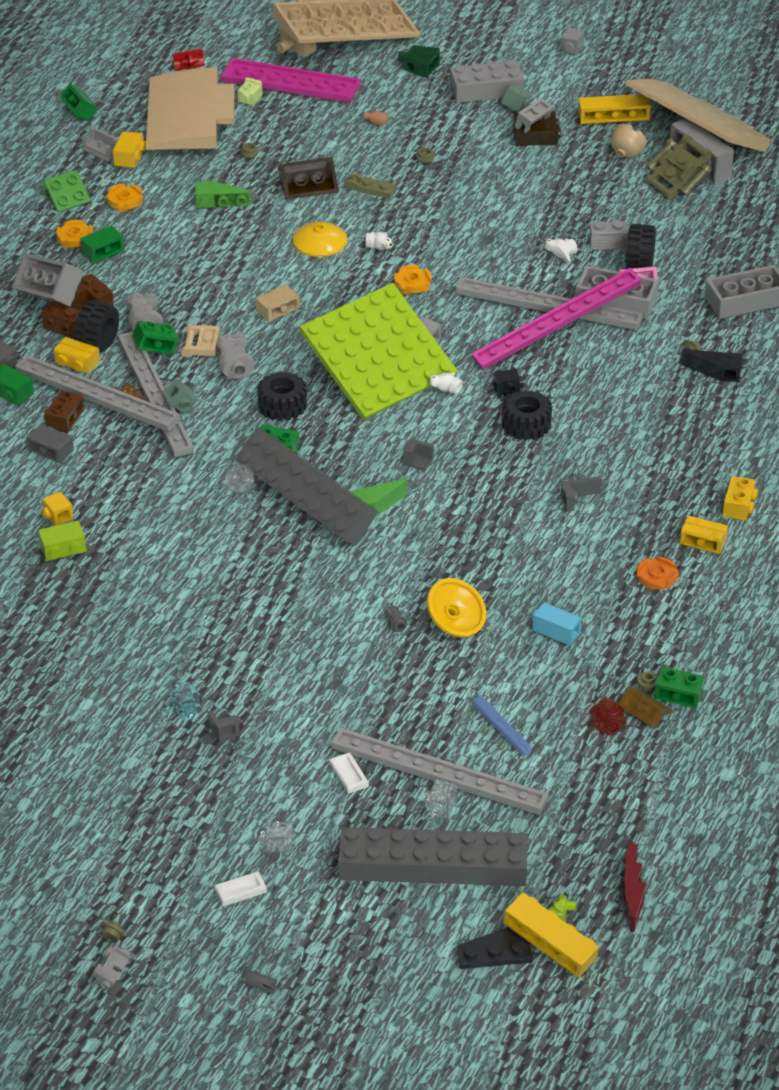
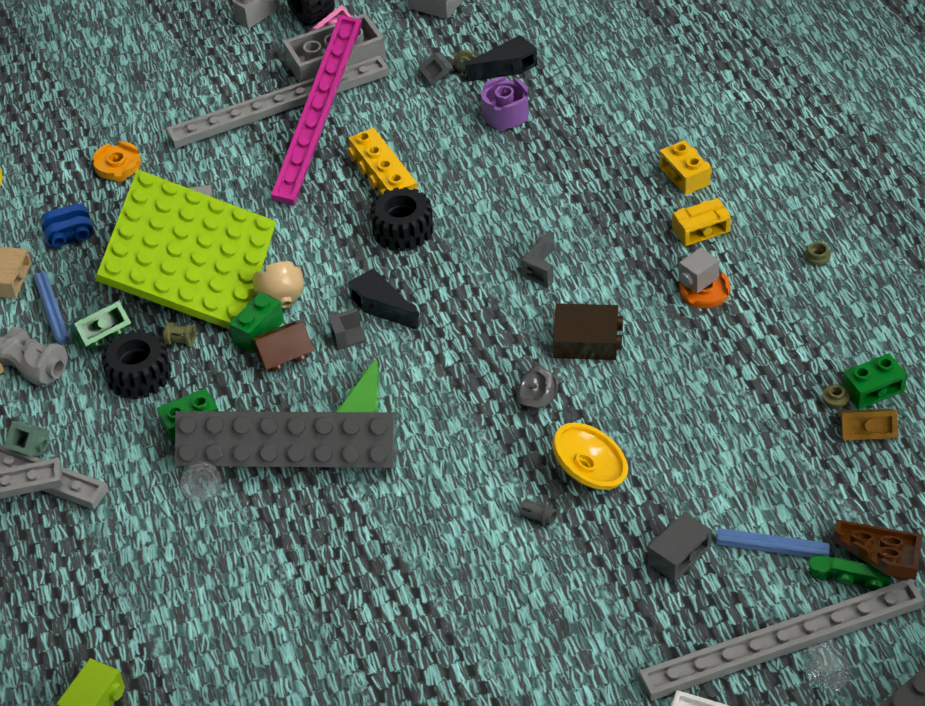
camera: 40 degrees left, 5 degrees up
(57, 509) = (37, 663): yellow brick -> none
(279, 338) = (51, 308): none -> medium blue axle
(288, 361) = (100, 324): none -> brick
(325, 390) = (172, 330): none -> olive bush
(337, 295) = (66, 225): none -> blue brick
(370, 438) = (282, 345): none -> reddish brown brick
(373, 417) = (258, 317): none -> green brick
(378, 240) = (36, 144): white animal -> none
(409, 405) = (281, 282): none -> tan cylinder
(443, 686) = (679, 546): none -> dark grey brick
(446, 382) = (282, 239): white animal -> none
(457, 451) = (378, 298): none -> black slope
(482, 557) = (537, 387): none -> dark grey hat
(507, 382) = (339, 201): black brick -> none
(519, 766) = (847, 572): none -> green hinge
(549, 546) = (587, 331): none -> dark brown brick
(553, 768) = (885, 549): none -> reddish brown plate
(556, 623) = (694, 402): medium azure brick -> none
(557, 376) = (378, 162): none -> yellow brick
(561, 248) = (226, 42): white animal -> none
(608, 716) = (859, 458): clear red brick -> none
(657, 557) = (698, 270): none -> light grey brick
(668, 341) = (436, 68): none -> dark grey panel
(678, 389) = (504, 103): none -> medium lavender brick
(752, 600) = (817, 253): none -> olive plate

